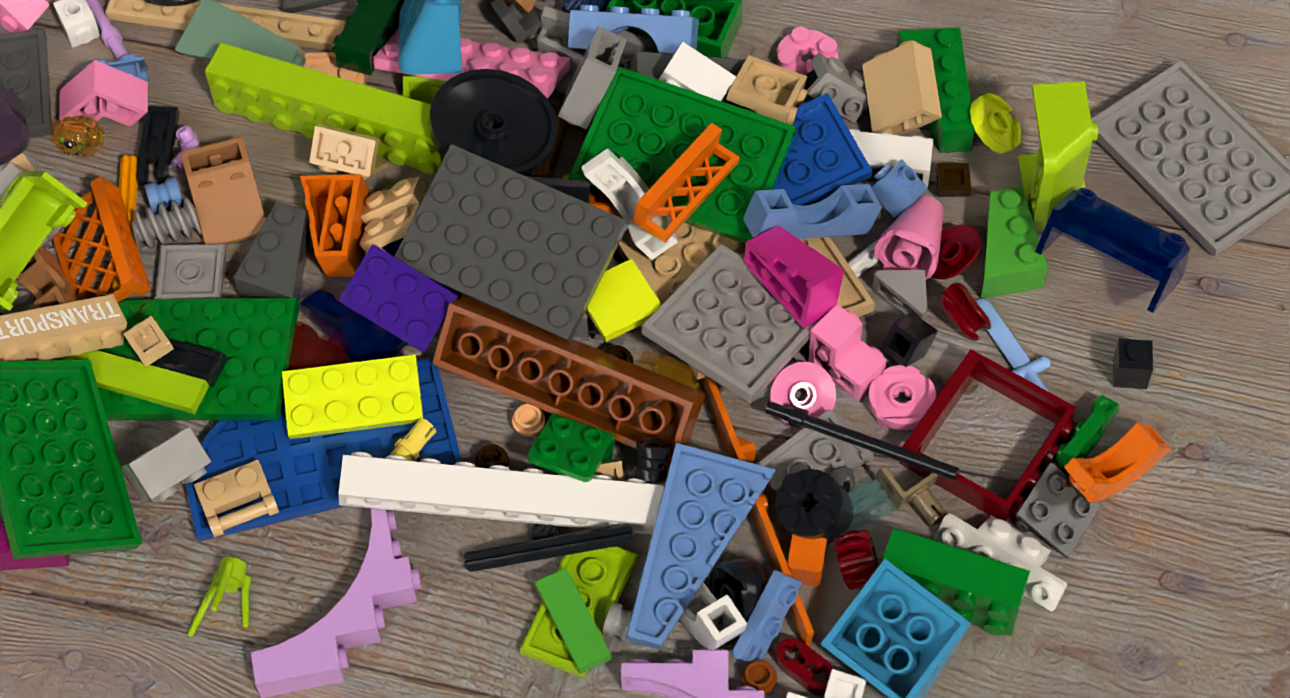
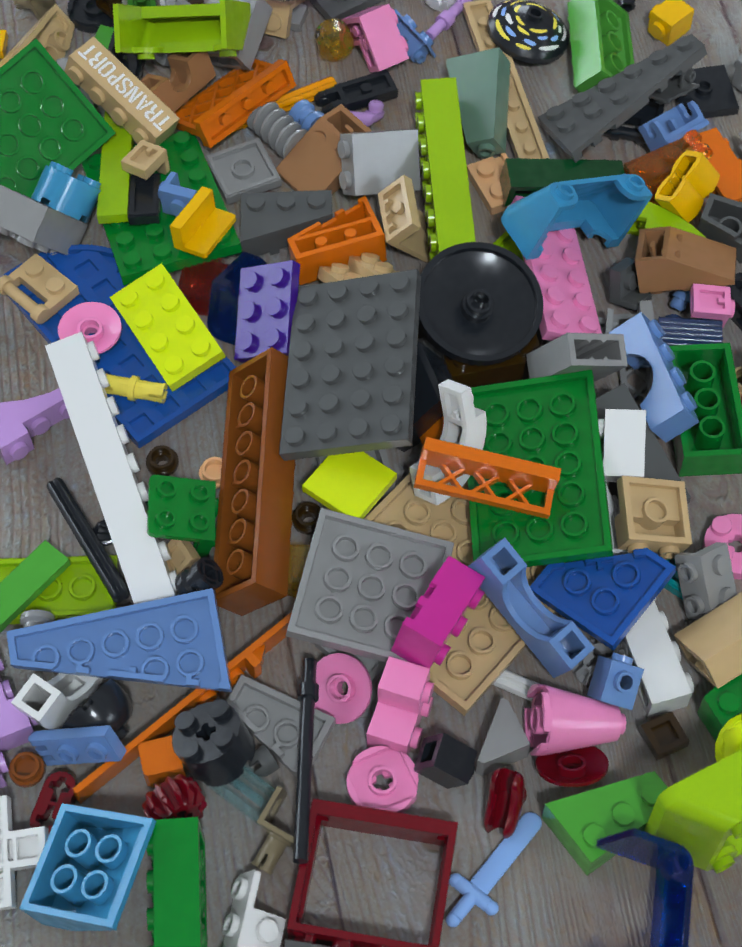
camera: 65 degrees right, 0 degrees up
(139, 428) = (65, 193): none -> dark azure brick
(216, 330) = (173, 196): none -> medium blue bracket
(264, 318) = (200, 225): none -> yellow panel
(271, 147) = (377, 159): none -> light grey brick
(308, 454) = (92, 318): none -> bright pink dish

